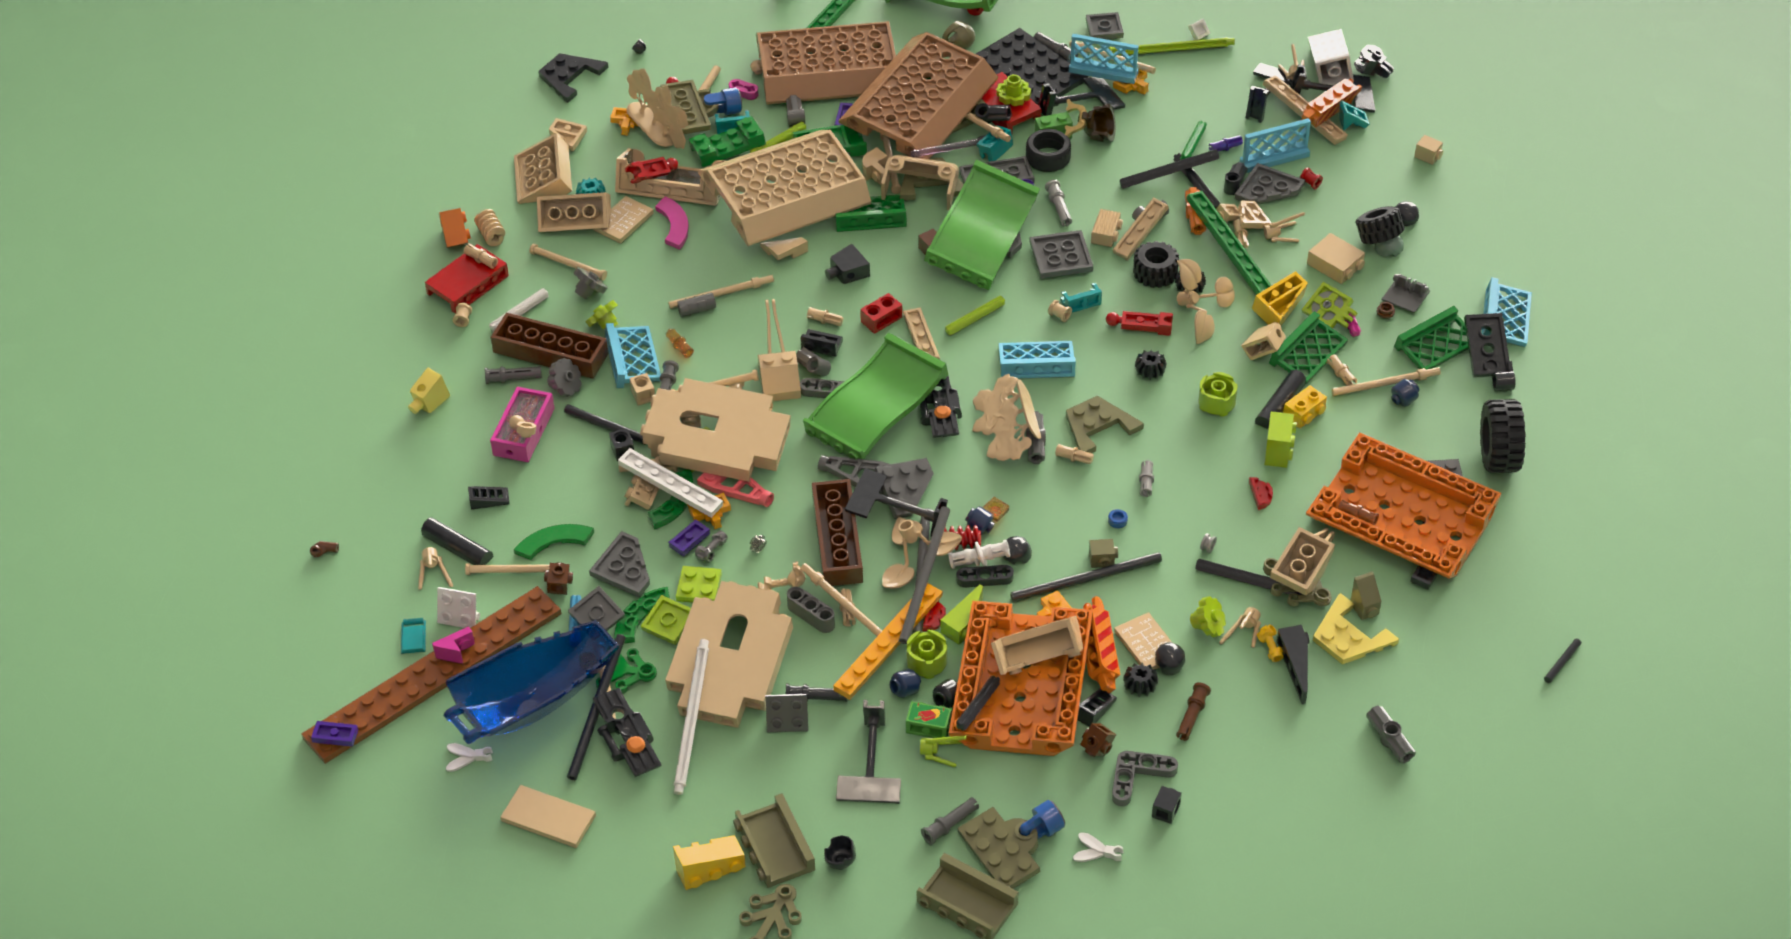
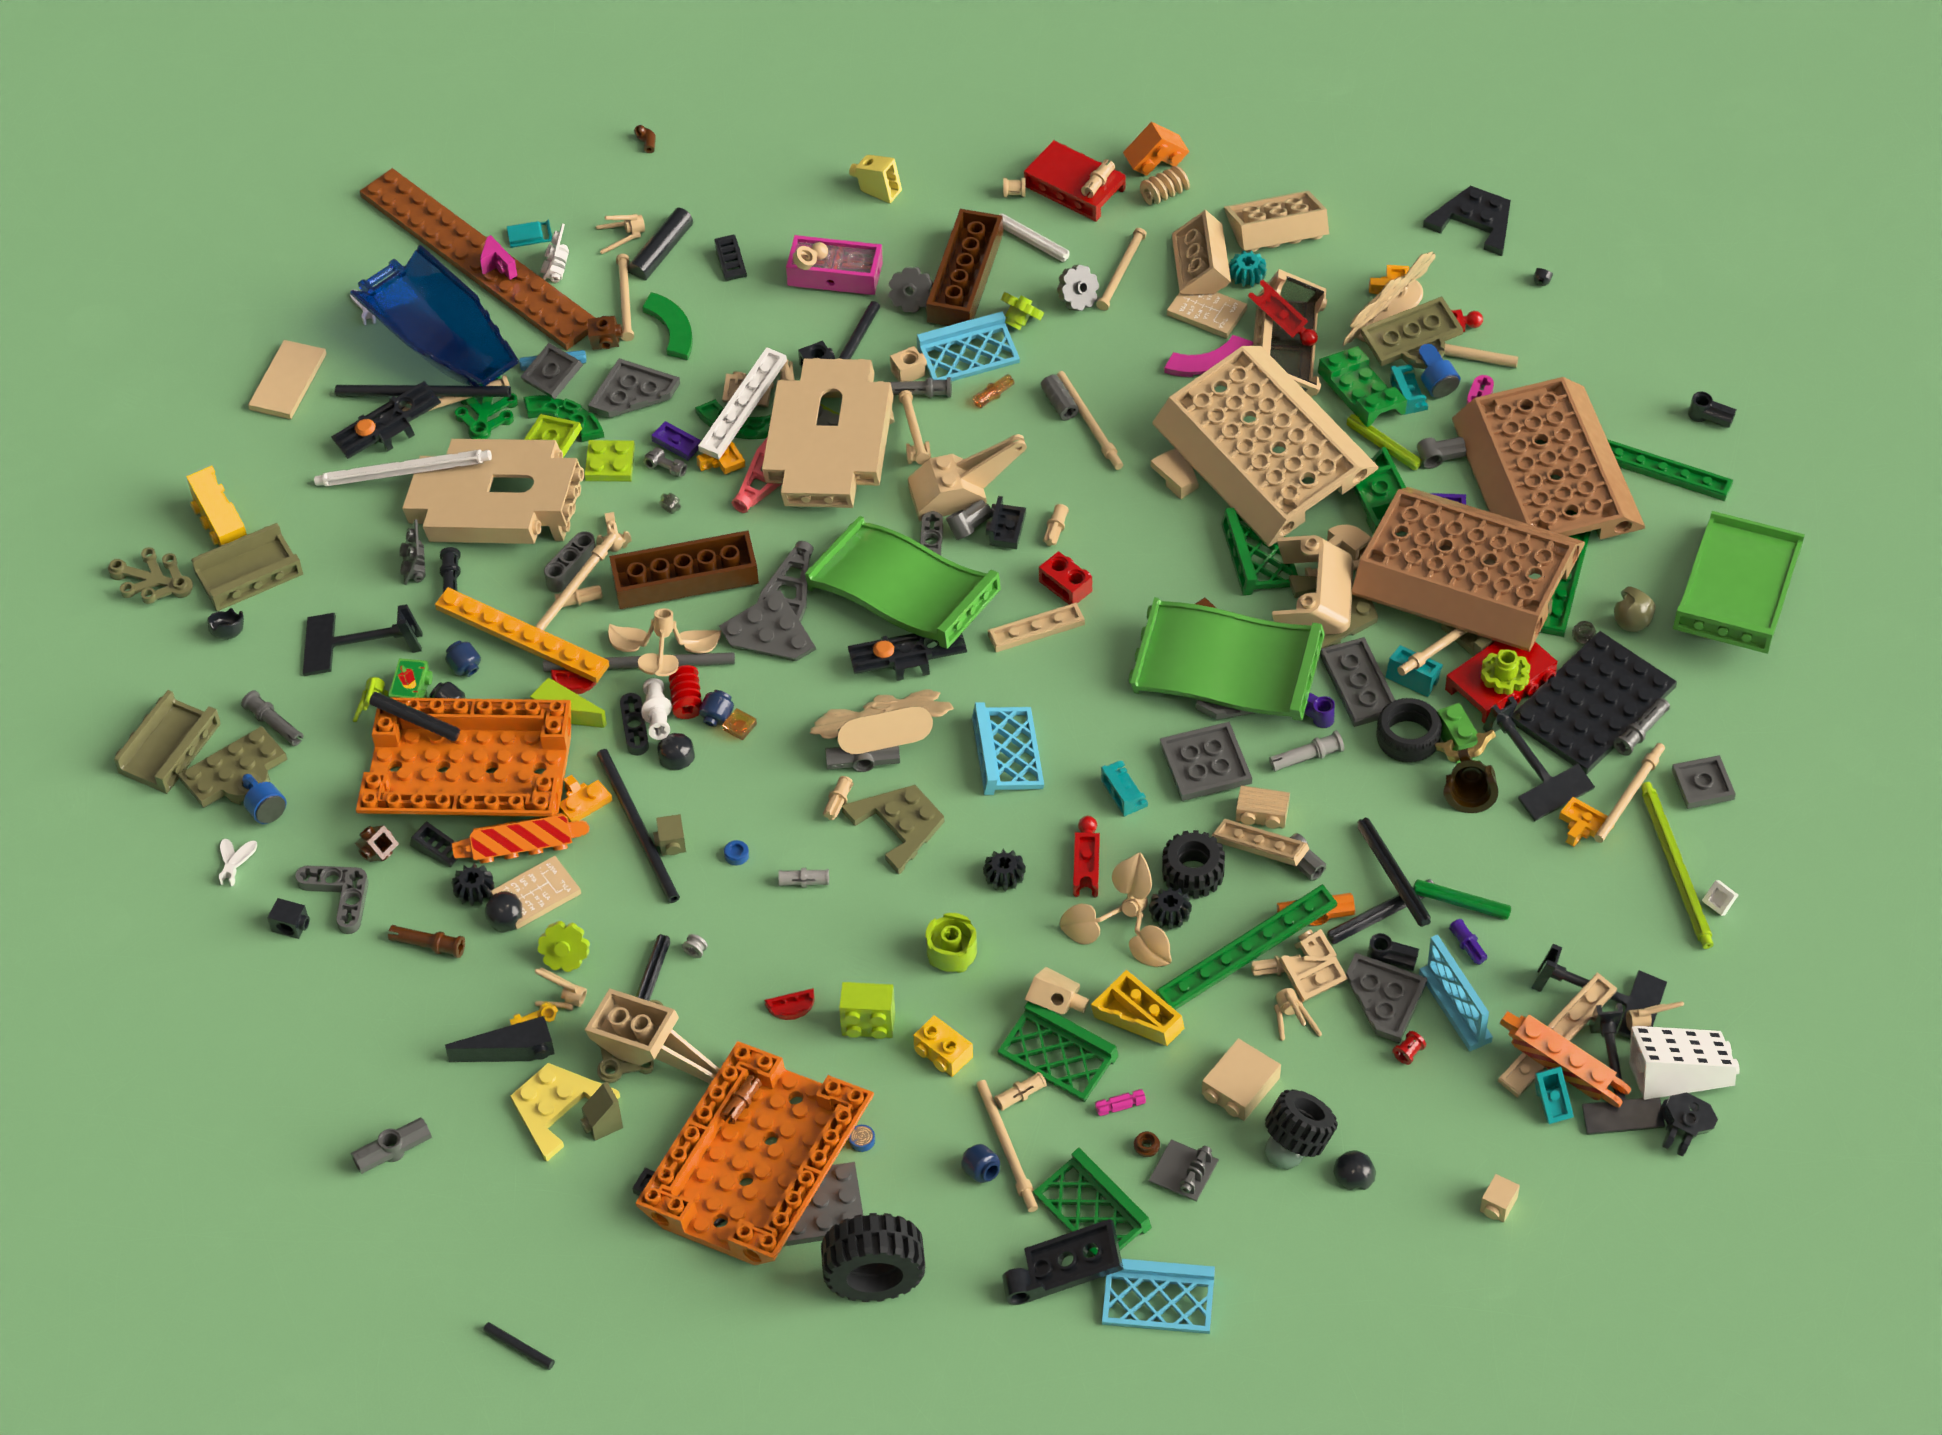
camera: 85 degrees right, 5 degrees up
(334, 733) = (380, 187): dark purple plate -> none
(503, 374) = (921, 240): dark grey pin -> none
(569, 131) = (1355, 232): tan wing -> none
(848, 265) = (1149, 536): black torso -> none
(868, 492) = (732, 584): black piece -> none
(924, 575) = (603, 647): dark grey piece -> none
(926, 653) = (502, 671): lime brick -> none
(946, 147) = (1379, 608): bar -> none
(975, 315) = (1079, 678): lime axle -> none
(994, 112) = (1458, 652): black piece -> none
(1038, 645) = (493, 752): tan windscreen -> none
(1060, 311) = (1092, 768): tan bush -> none
(1104, 69) = (1591, 775): medium azure fence -> none
(1287, 390) = (969, 1025): black brick -> none
(1331, 305) = (1135, 1070): lime piece -> none

